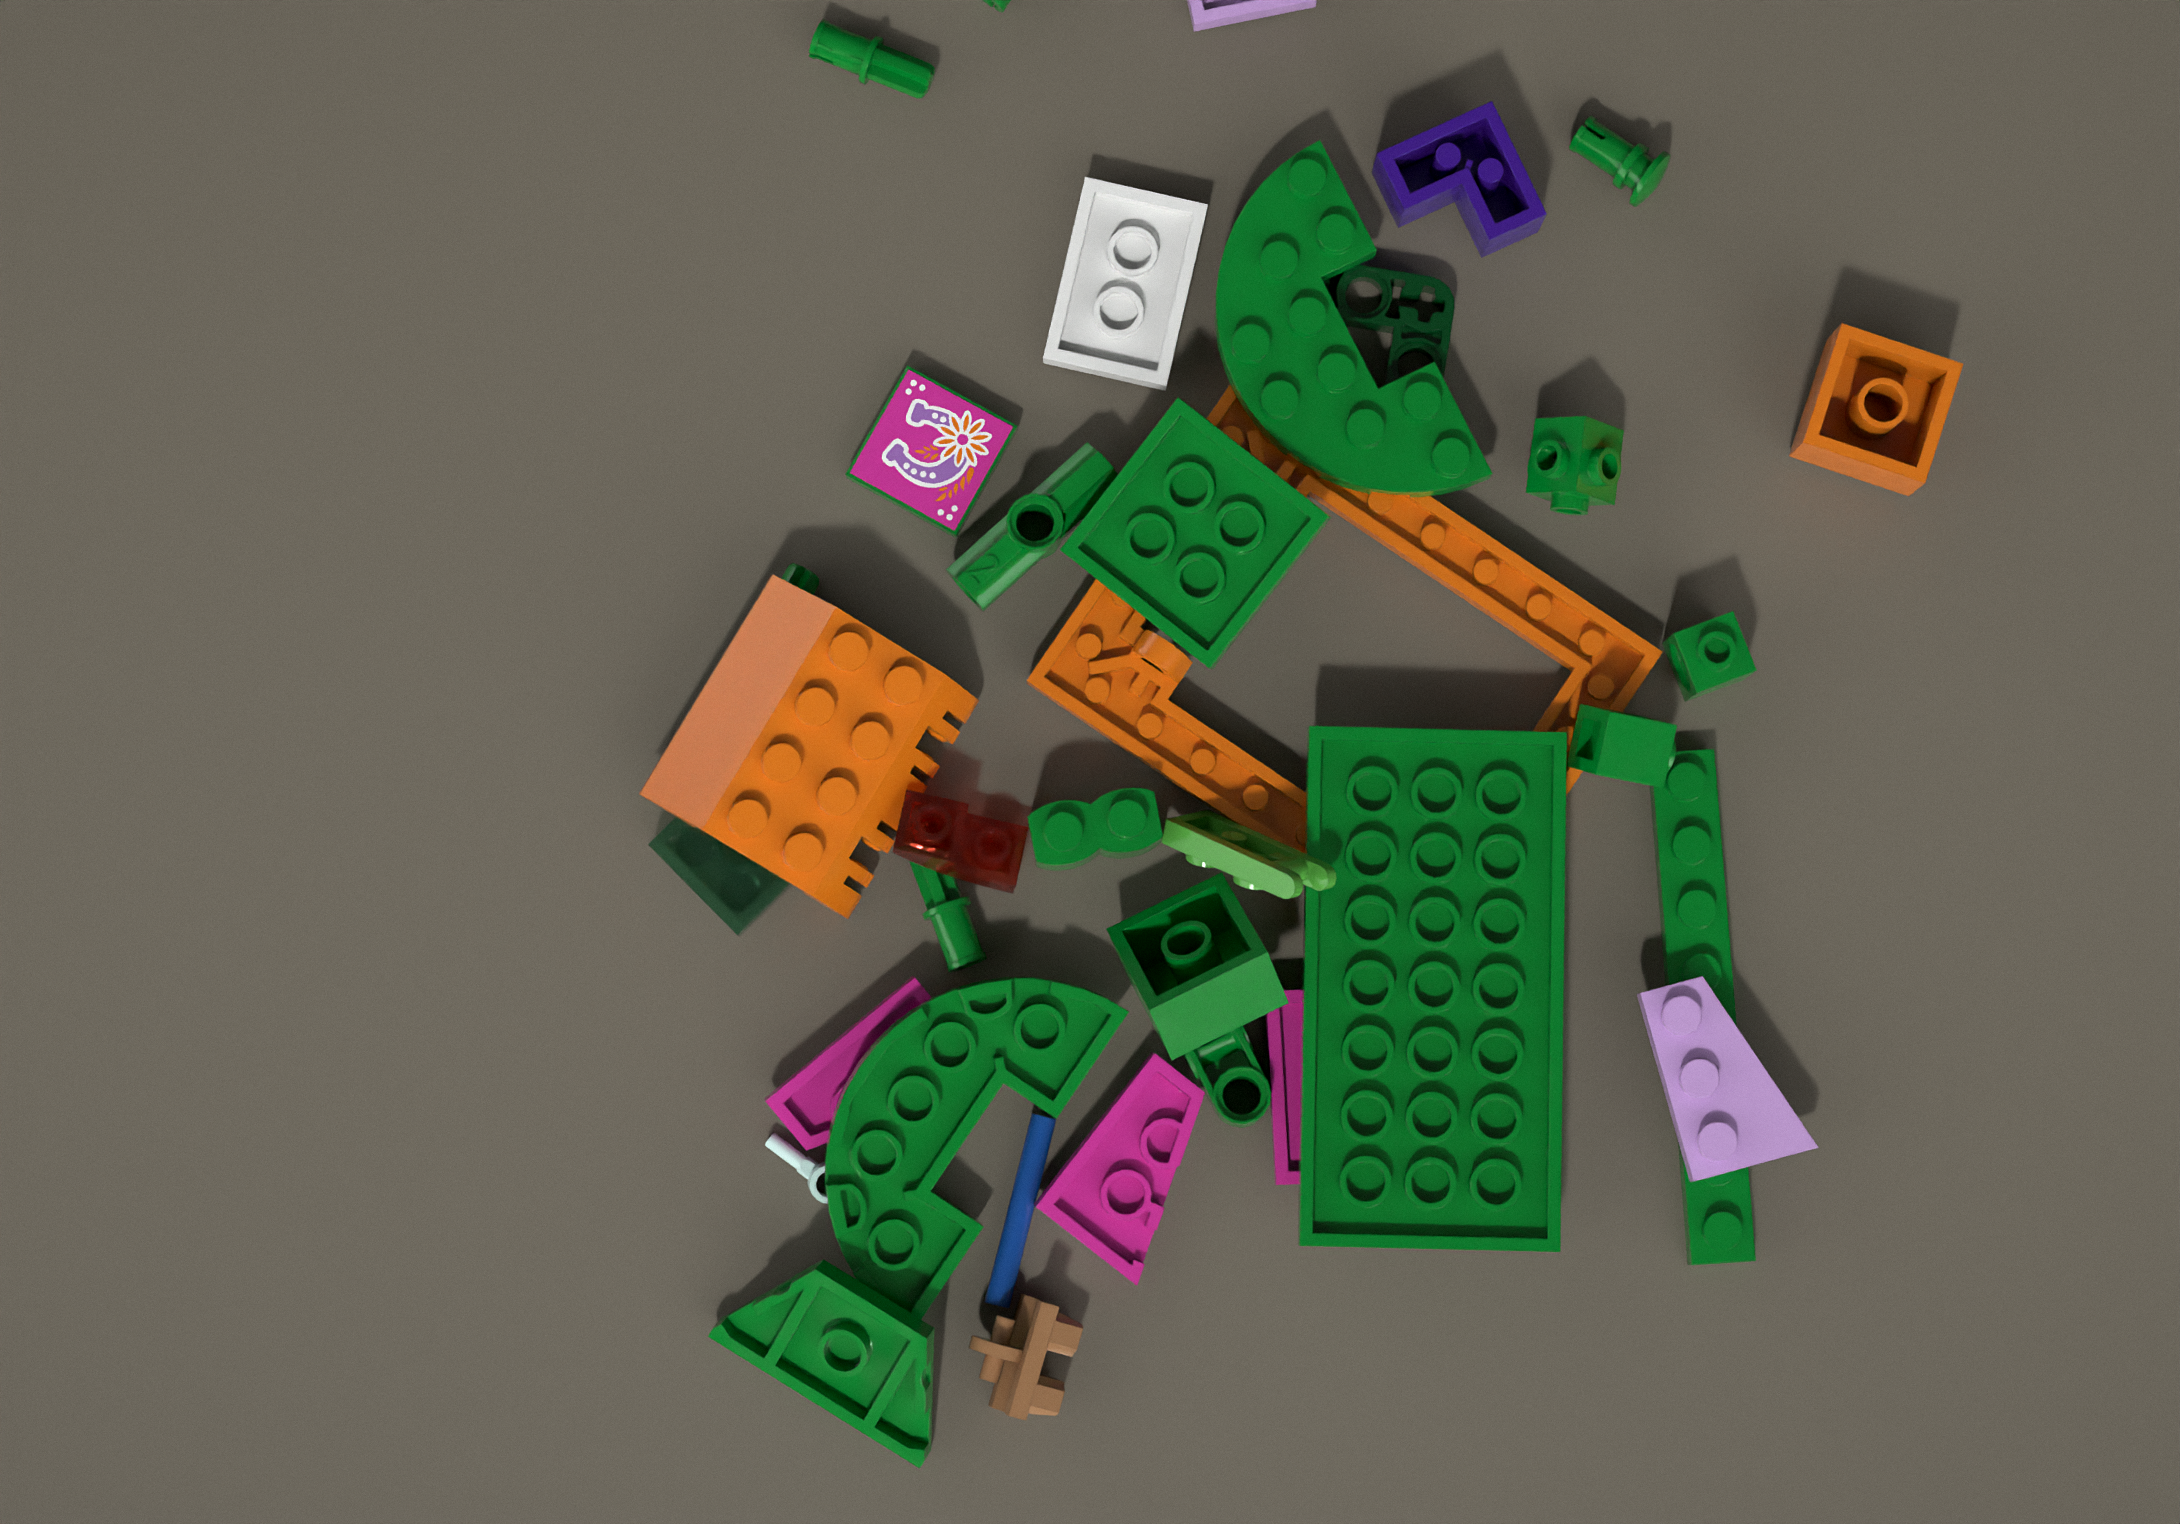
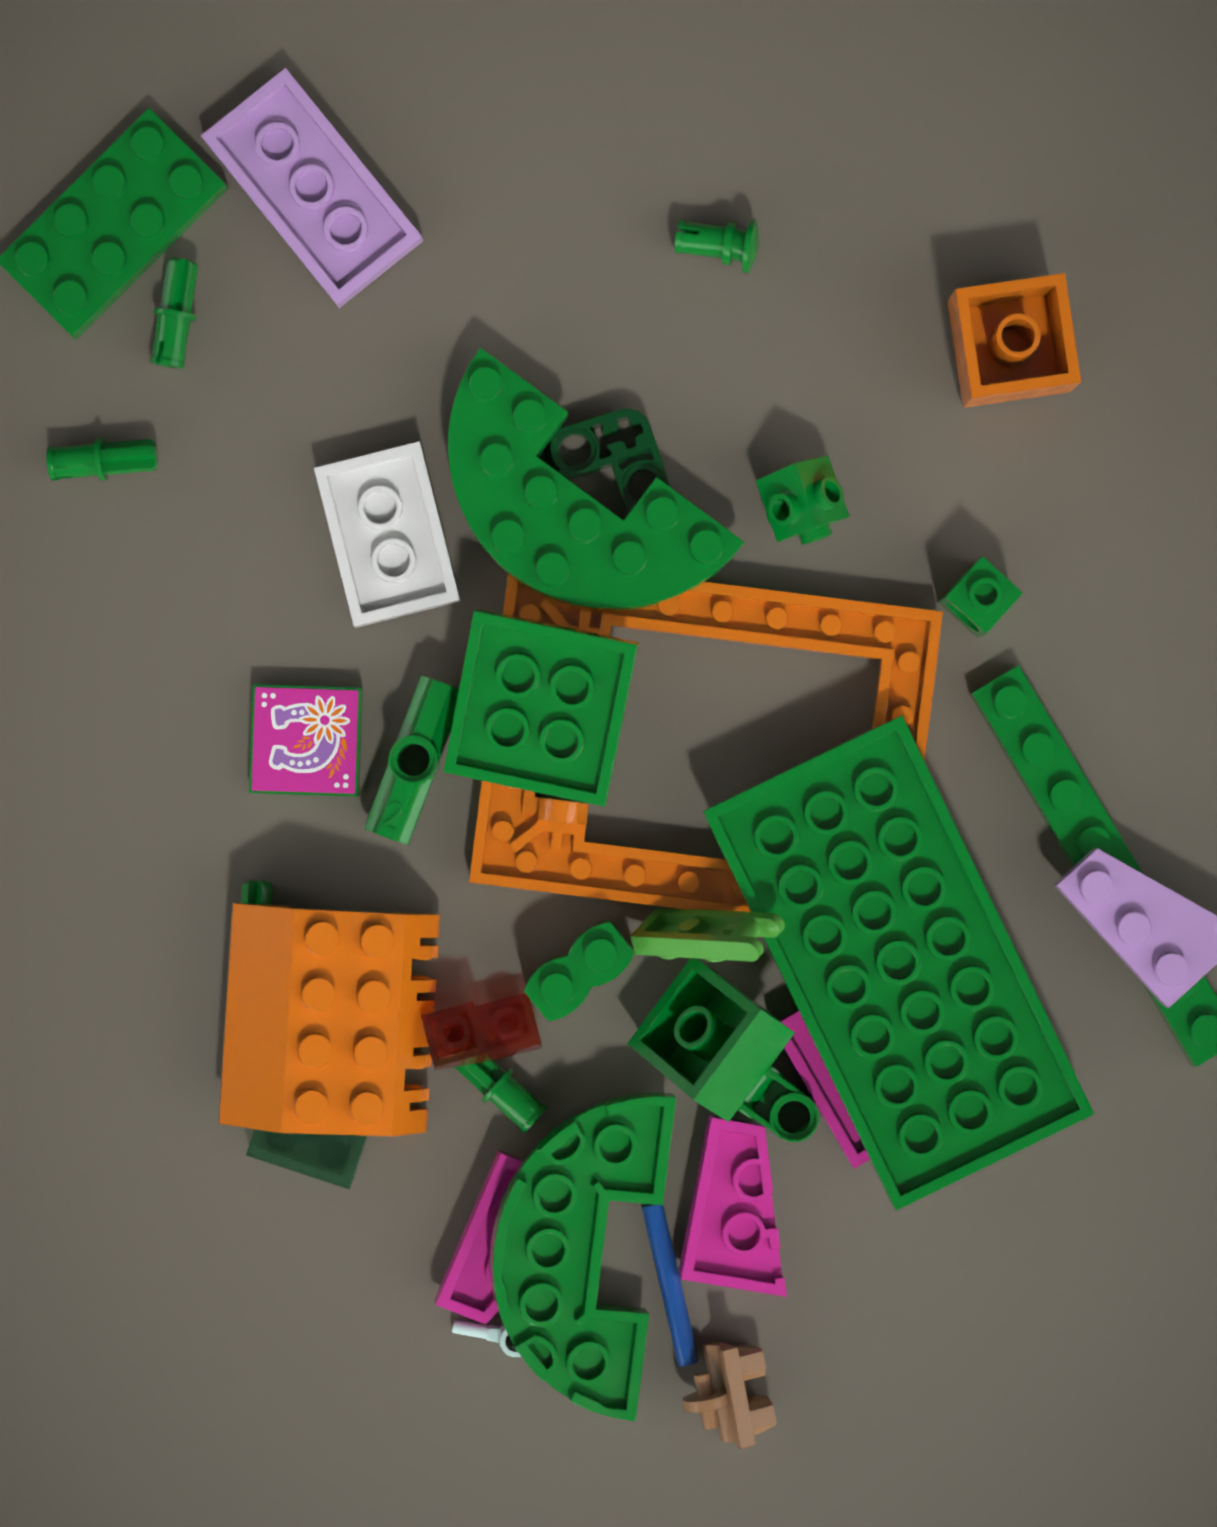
camera: 25 degrees left, 5 degrees up
(843, 1353) = (592, 1463): green wing -> none
(1467, 164) = (602, 308): dark purple brick -> none
(1622, 746) = (949, 703): green brick -> none

